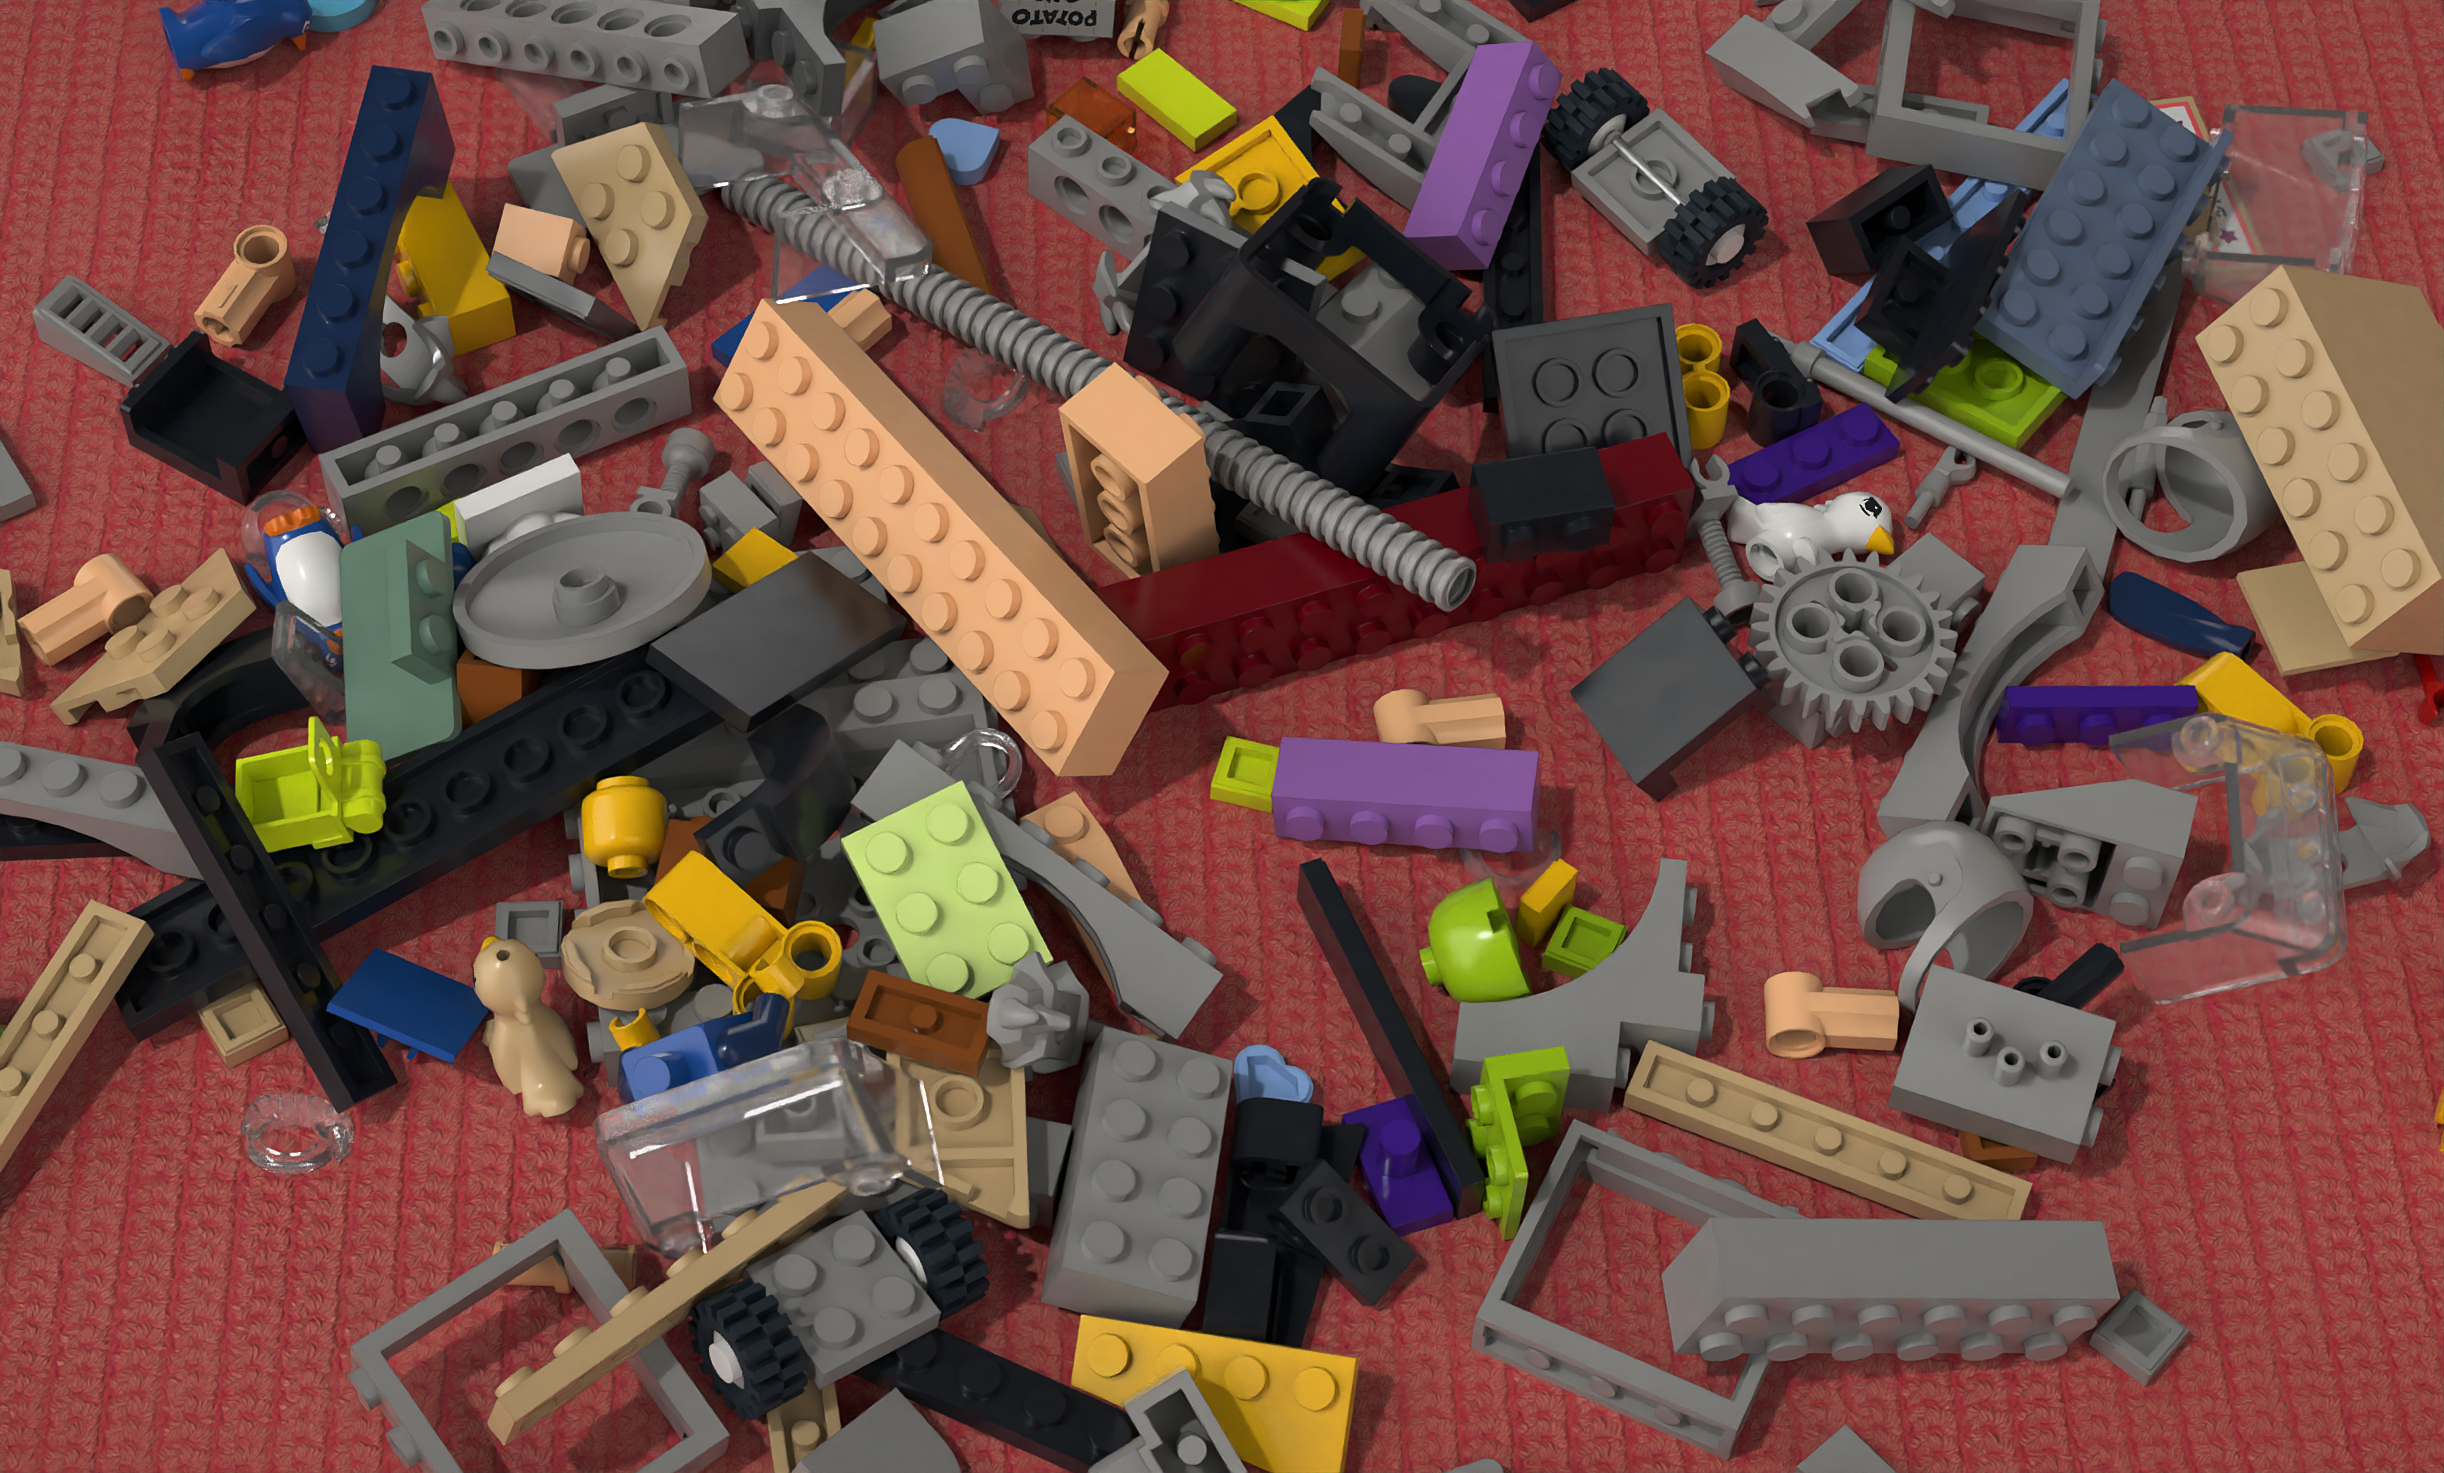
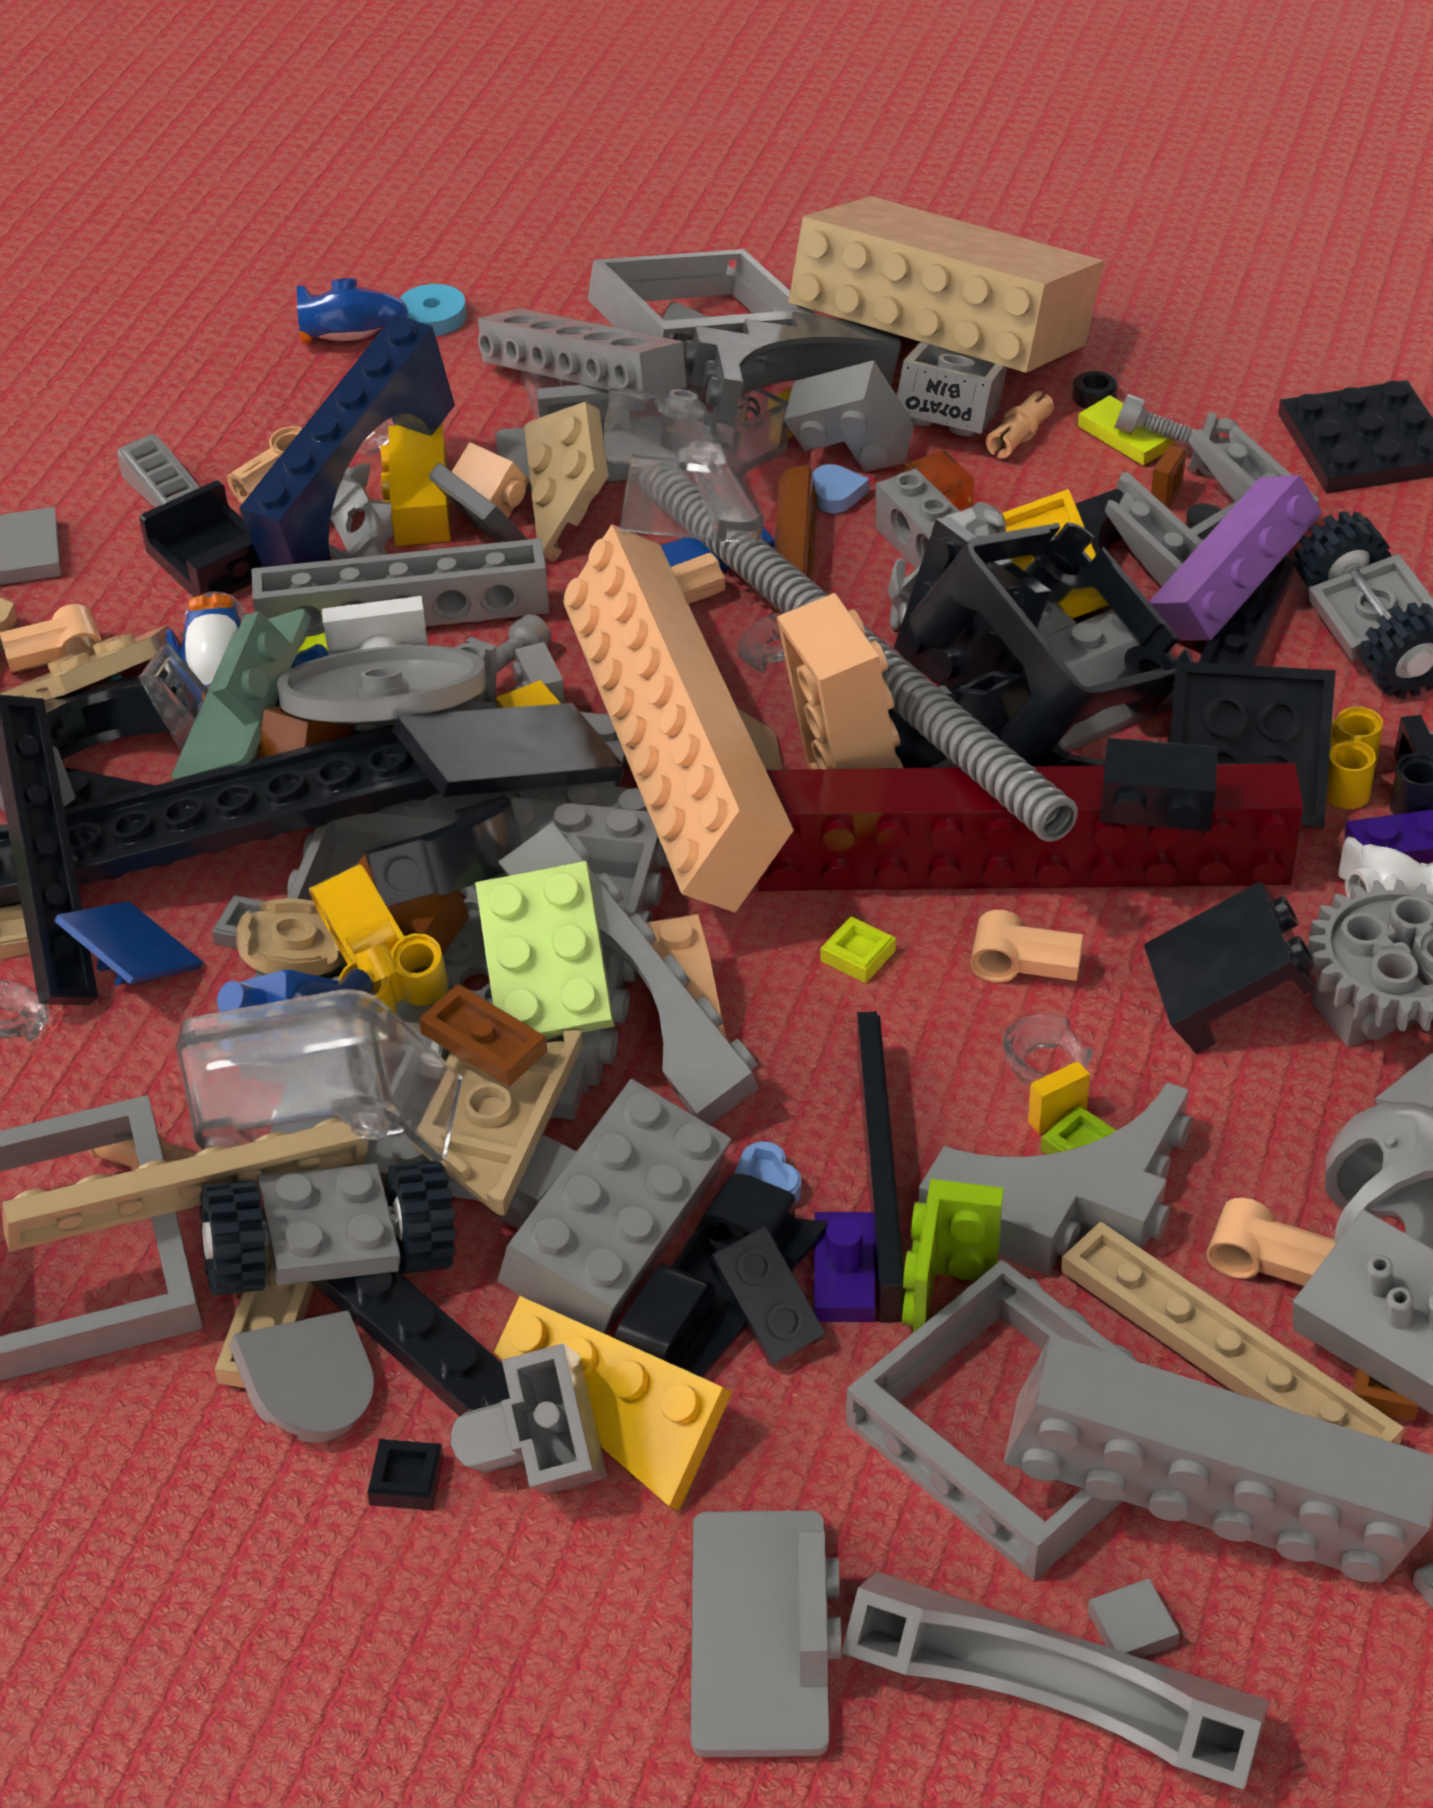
camera: 25 degrees right, 10 degrees down
(313, 791) = (121, 773): neon yellow piece -> none
(526, 1037) = (193, 934): tan animal -> none
(624, 826) = (333, 844): yellow head -> none
(777, 496) = (575, 675): light grey tile -> none
(961, 747) = (619, 864): clear piece -> none
(1041, 1017) = (564, 1048): light grey piece -> none
(1176, 99) = (1011, 480): neon yellow tile -> none
(1407, 794) = (974, 986): medium lavender brick -> none
(1475, 947) = (980, 1108): lime cylinder -> none
(1708, 506) = (1315, 852): light grey bar -> none

